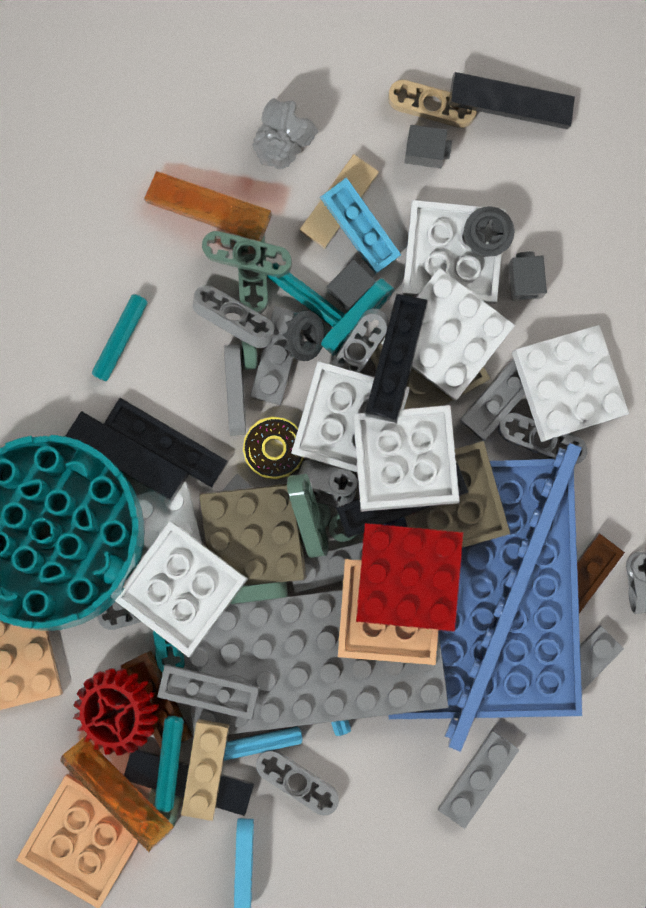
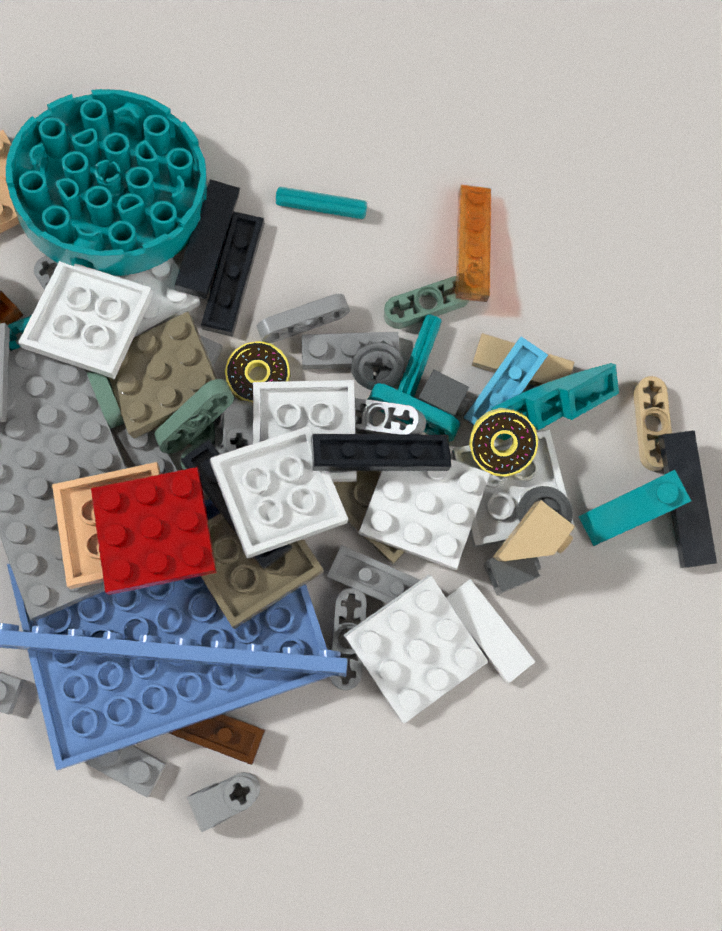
camera: 65 degrees right, 10 degrees down
(210, 299) = (365, 303): light grey beam -> none
(222, 255) = (433, 300): sand green beam -> none
(249, 356) = (343, 320): sand green tile -> none
(282, 134) = (568, 285): light grey hair -> none
(386, 177) = (564, 396): none -> teal slope
(427, 146) = (608, 428): dark grey brick -> none
(432, 246) = (510, 460): none -> tile
(508, 150) = (635, 508): none -> teal slope
(512, 248) = (537, 535): none -> tan slope
(572, 315) = (490, 632): none -> white tile

